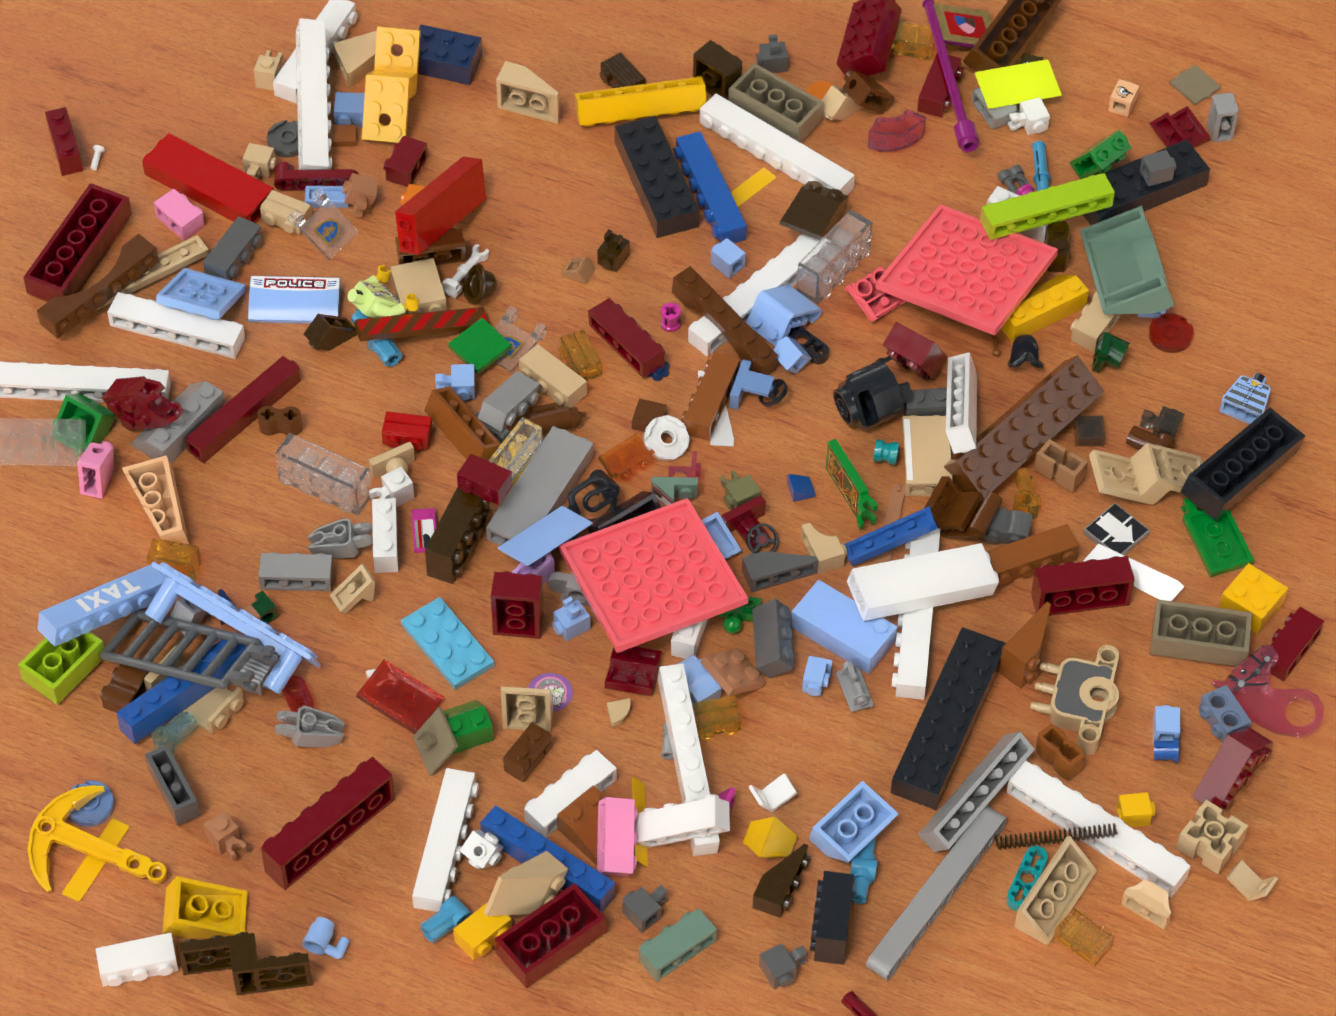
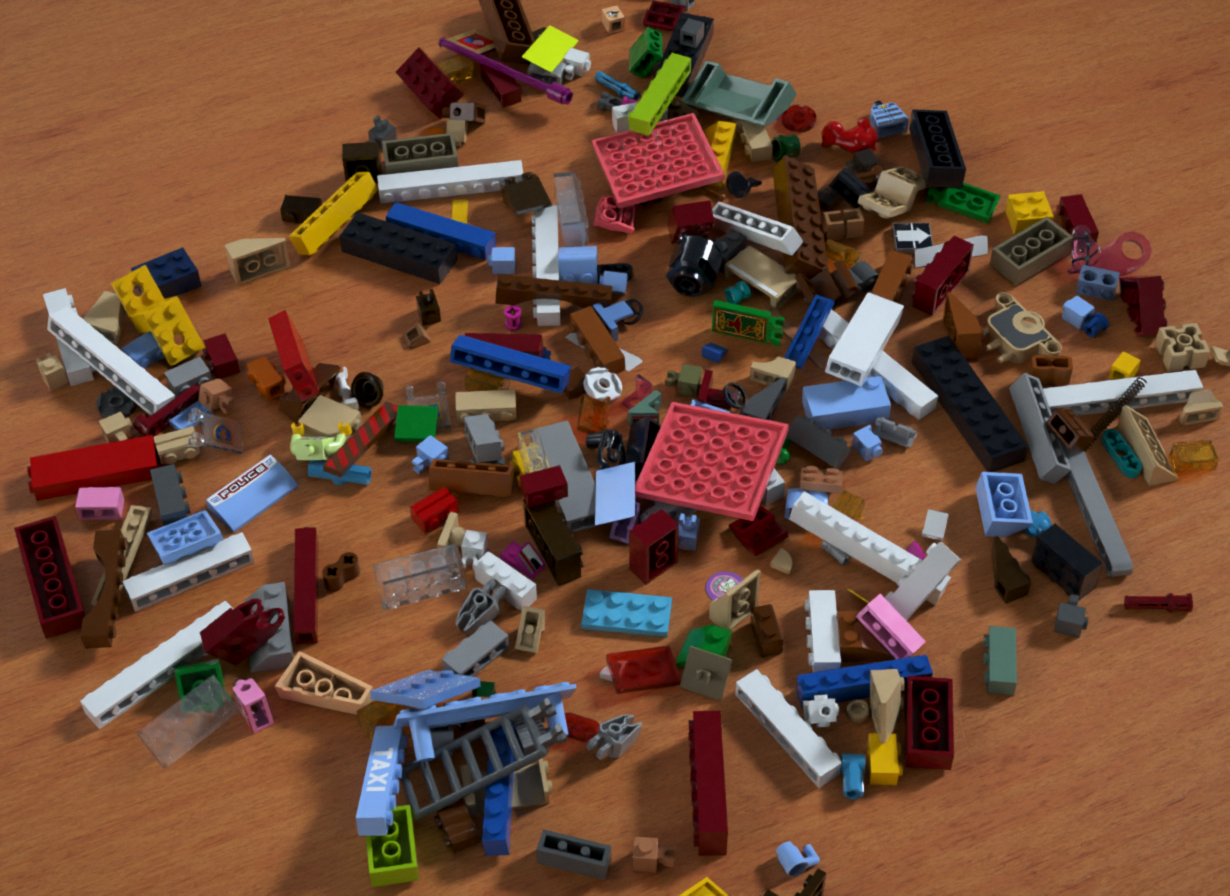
camera: 45 degrees left, 5 degrees down
(174, 731) = (527, 824): clear light blue piece -> none
(212, 563) = (425, 688): none -> medium blue plate
(329, 331) = (303, 493): dark brown slope -> none
(363, 158) = (187, 375): none -> light grey brick
(551, 415) = (525, 422): reddish brown piece -> none
(604, 355) = (510, 363): none -> blue brick
(644, 909) = (953, 657): dark grey brick -> none
(770, 838) = (969, 552): yellow slope -> none
(896, 132) = (512, 123): clear pink brick -> none
(988, 814) = (1070, 429): none -> reddish brown brick
(1112, 433) = (849, 187): none -> black brick
(1183, 394) = (852, 140): none -> red animal

